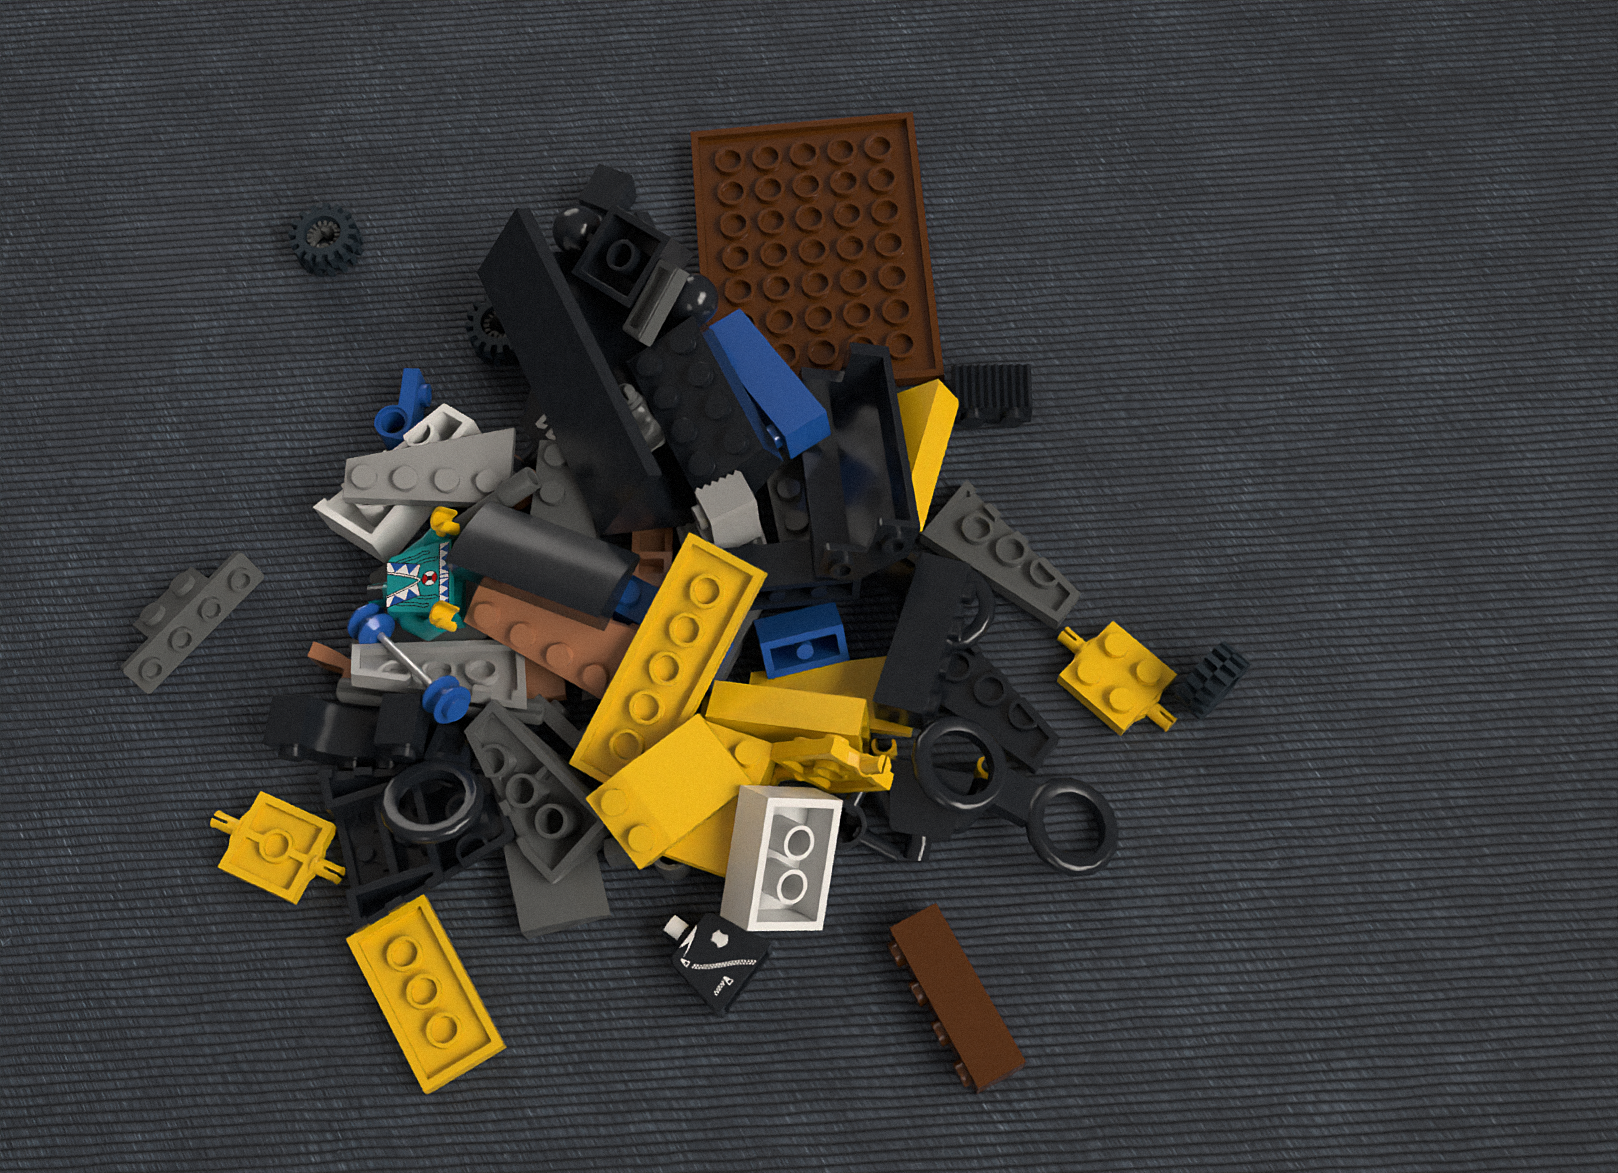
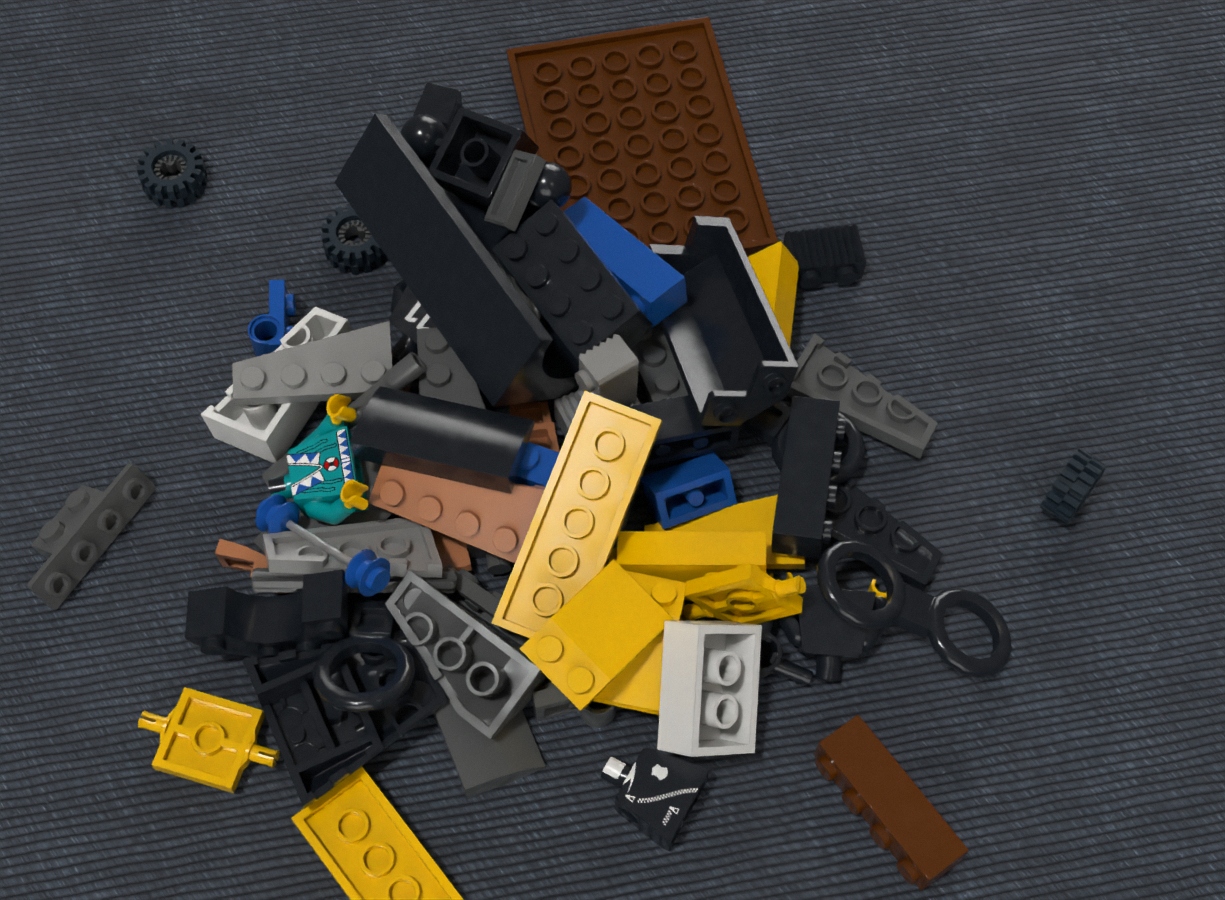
camera: 15 degrees left, 5 degrees down
(1116, 678) = (983, 496): yellow plate -> none

